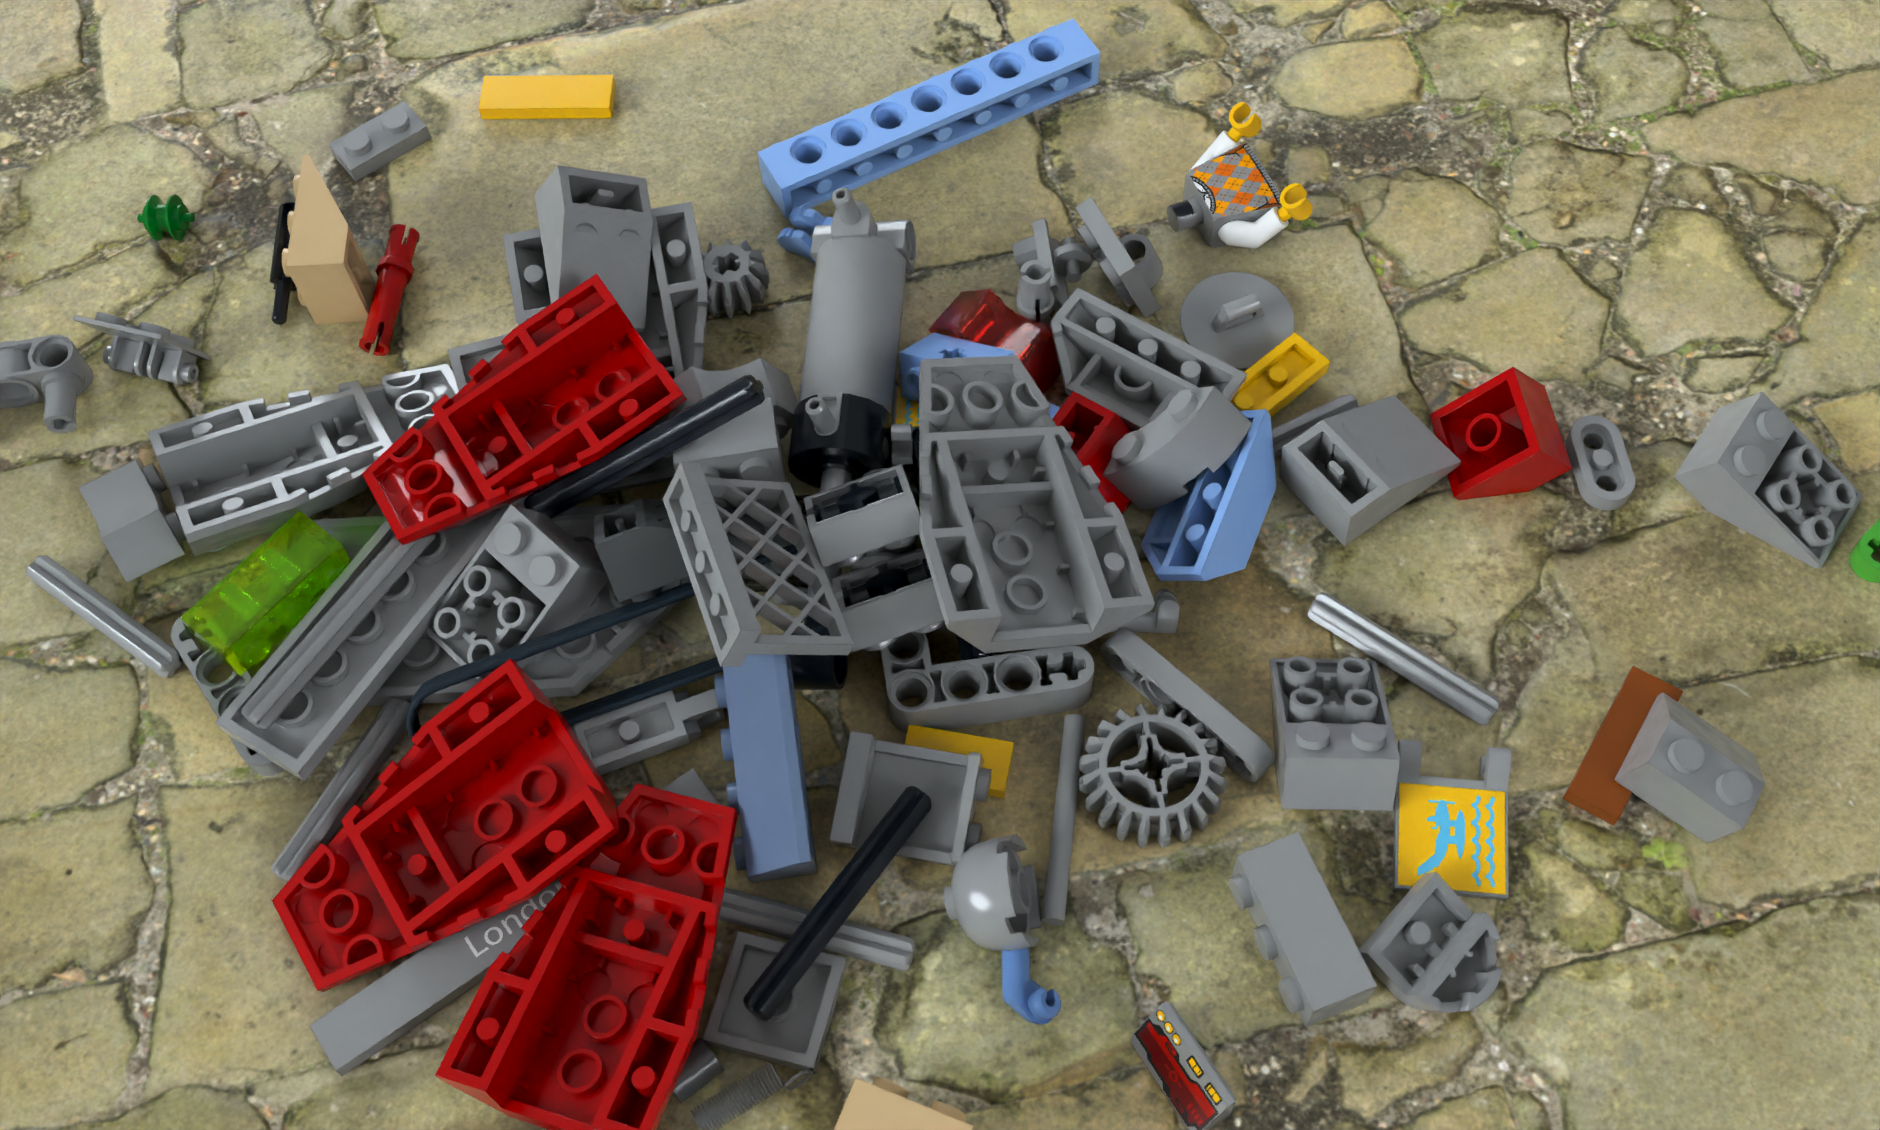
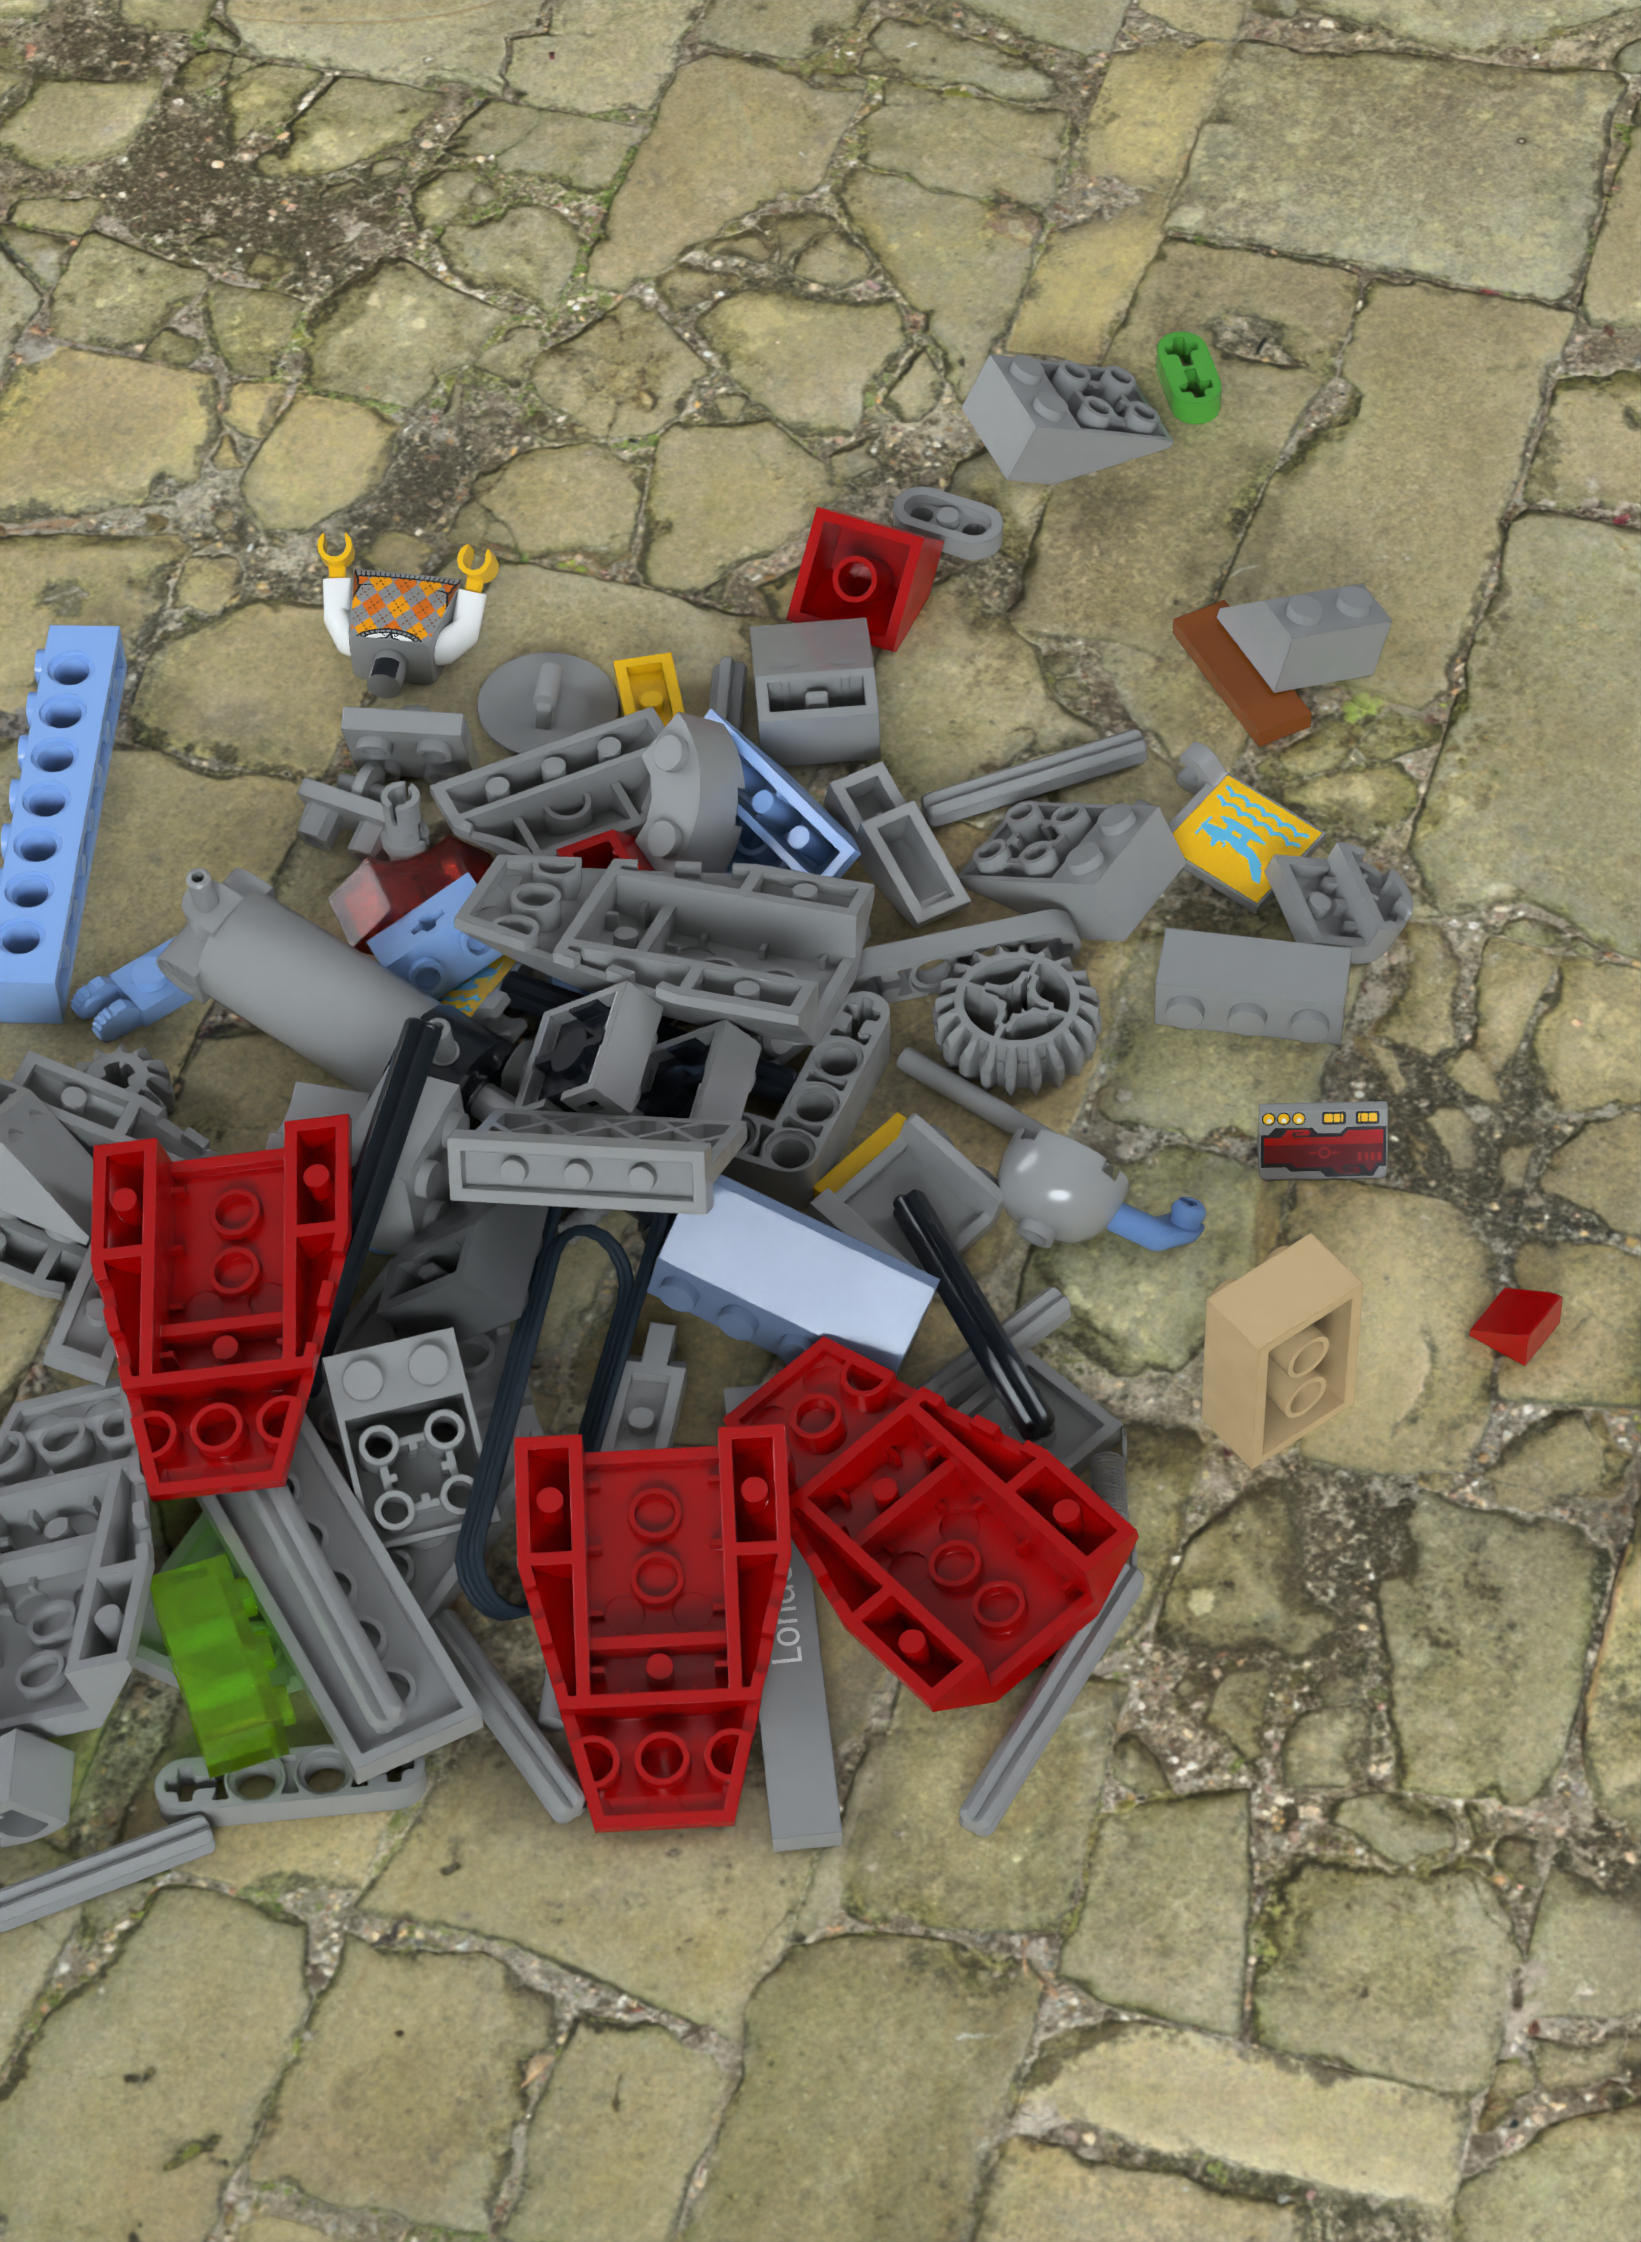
camera: 60 degrees left, 10 degrees down
(1260, 603) = (896, 846): none -> light grey slope

